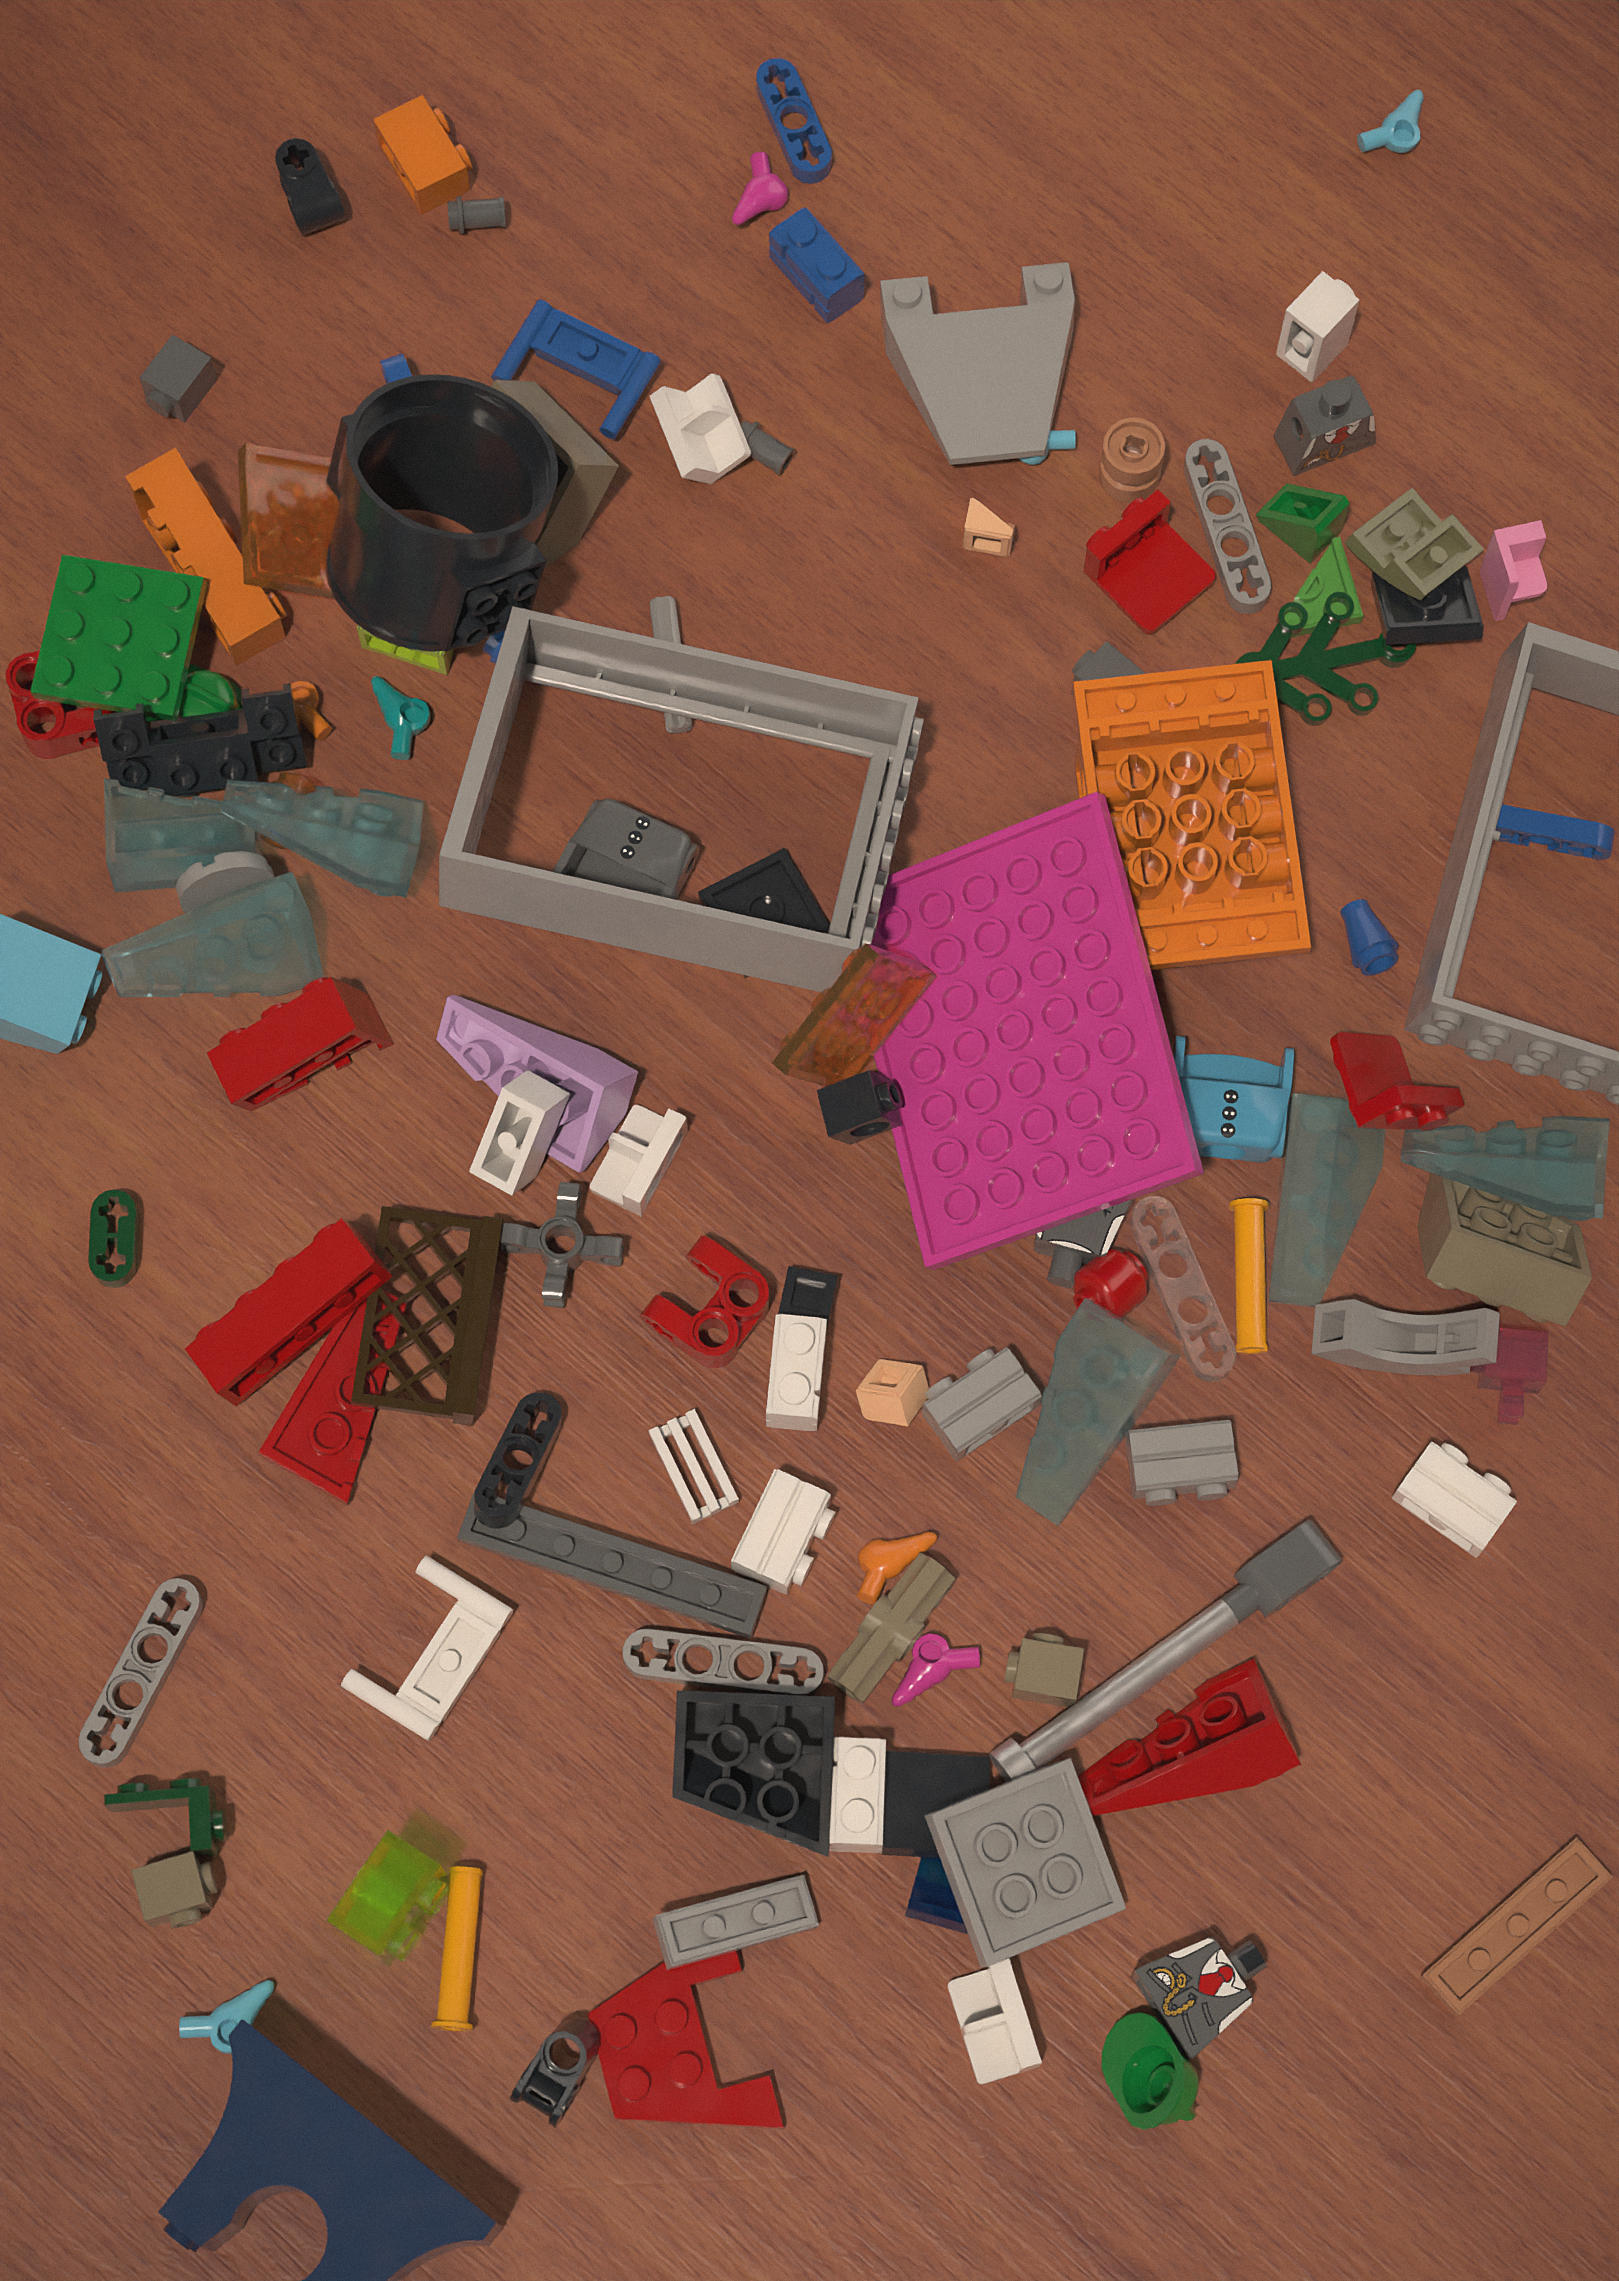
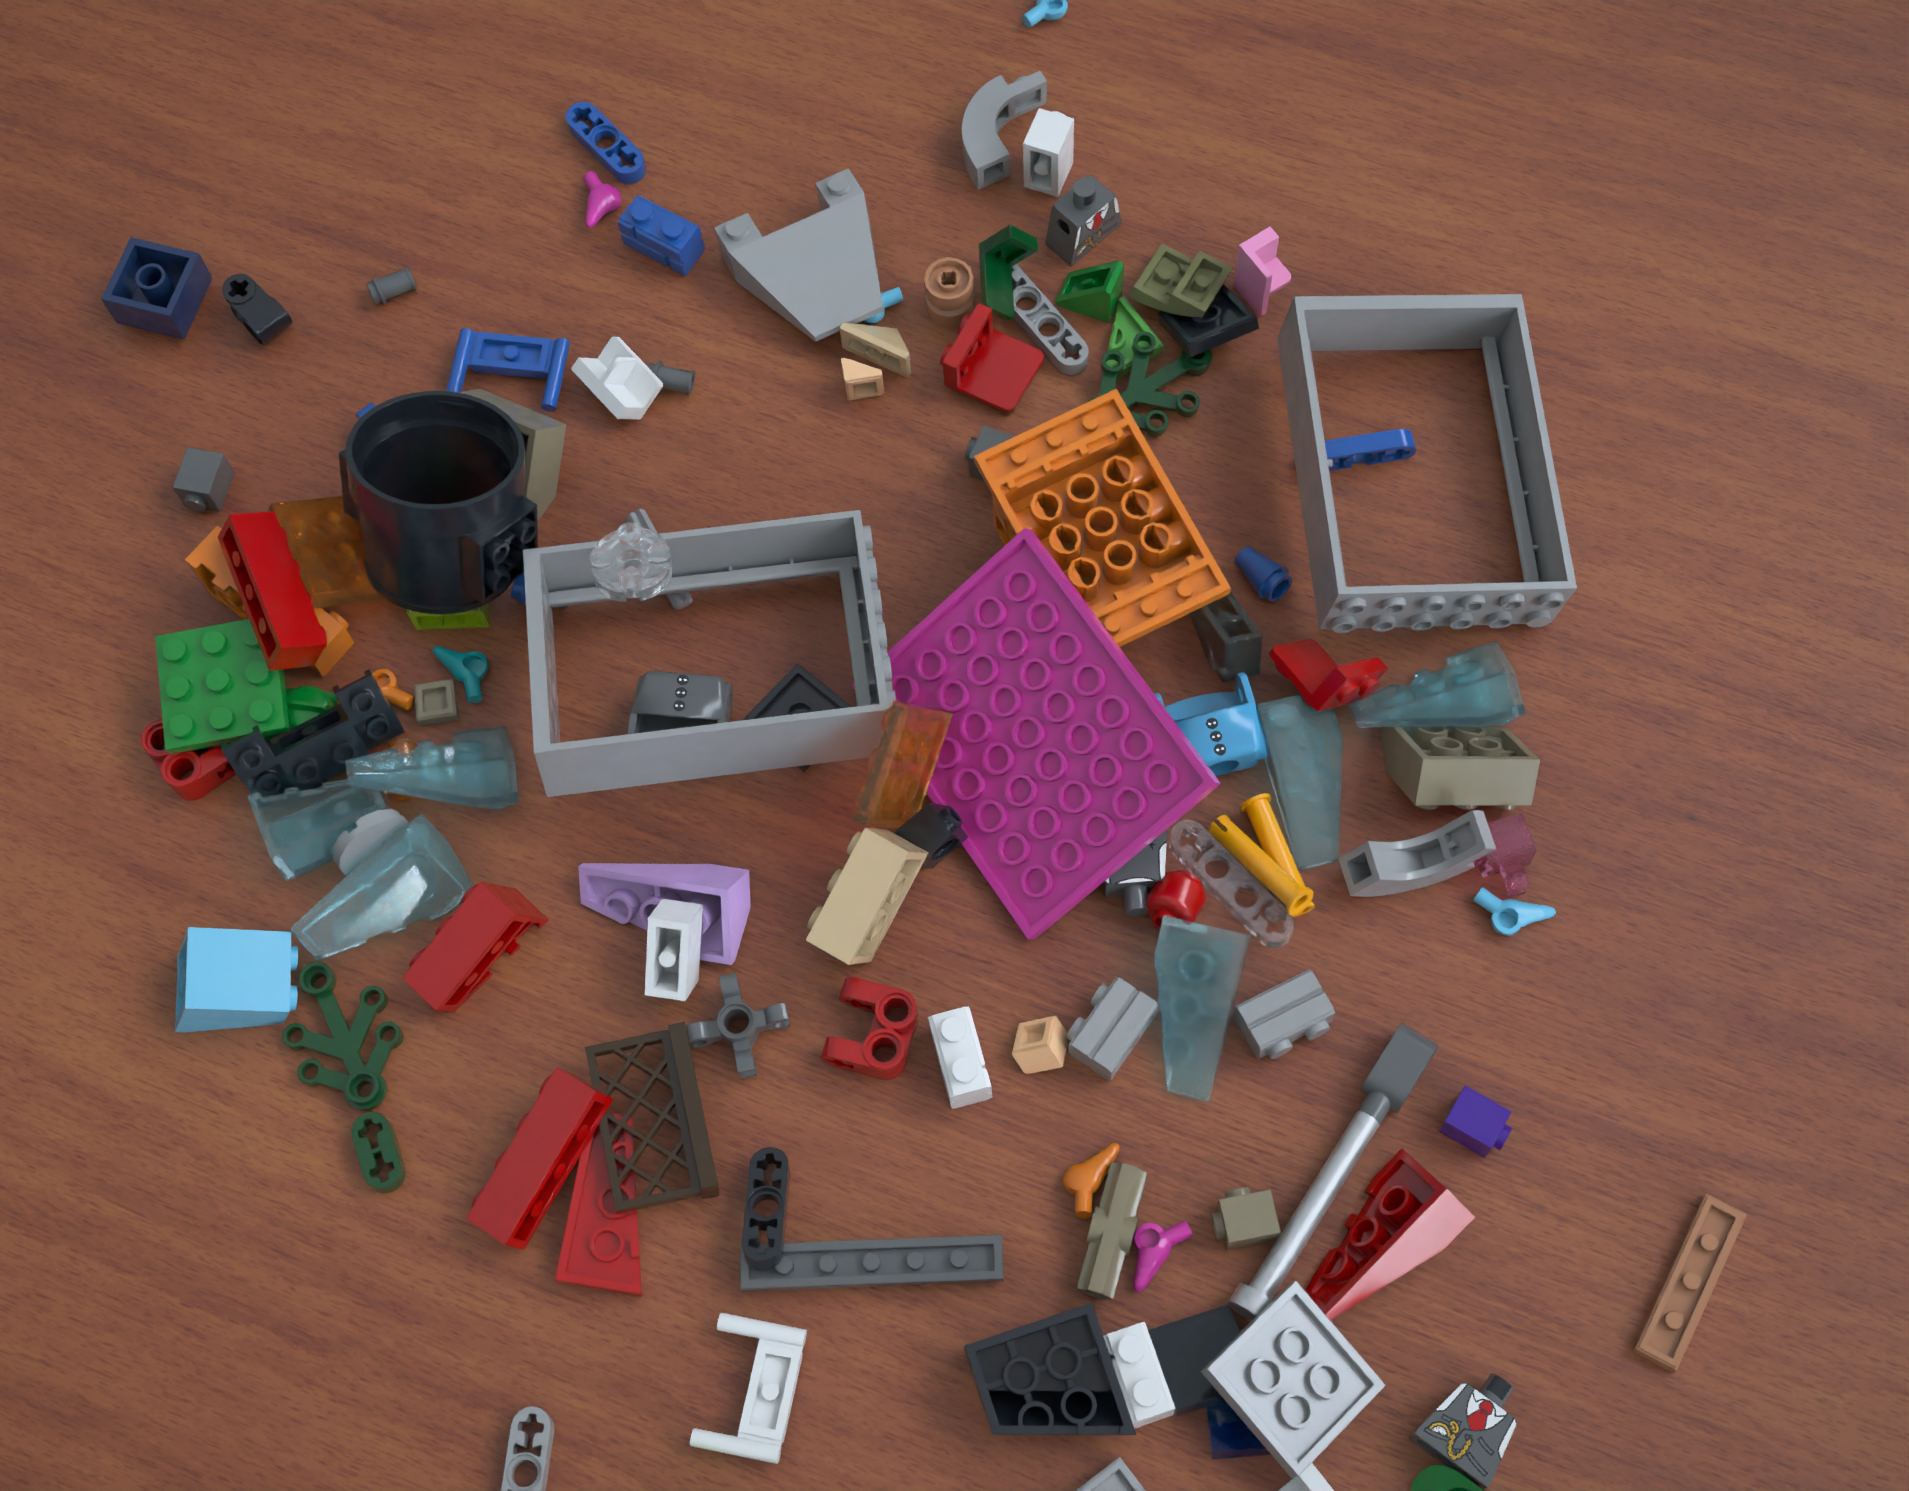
camera: 15 degrees left, 5 degrees down
(119, 1102) = (346, 1042): none -> dark green plant
(201, 122) = (157, 288): none -> dark blue brick
(212, 550) = (272, 590): none -> red brick
(354, 743) = (436, 702): none -> dark tan tile
(422, 153) = (335, 256): orange brick -> none
(630, 644) = (627, 544): none -> clear plate
(639, 1158) = (773, 937): white panel -> none
(675, 1427) = (881, 1136): white tile -> none
(724, 1654) = (991, 1317): light grey beam -> none
(757, 1150) = (865, 895): none -> tan brick
(782, 1532) = (996, 1187): white brick -> none
(808, 1293) = (945, 992): black plate -> none
(1024, 493) = (877, 345): none -> tan slope
(1196, 453) = (996, 261): none -> dark green bracket
(1224, 1281) = (1261, 865): none -> light orange pin
(1259, 253) = (984, 117): none -> light grey arch
(1295, 999) = (1228, 638): none -> clear smoke slope
(1349, 1662) = (1477, 1122): none -> dark purple brick
(1455, 1497) = (1504, 965): white brick -> none
(1490, 1442) = (1511, 914): none -> medium azure animal

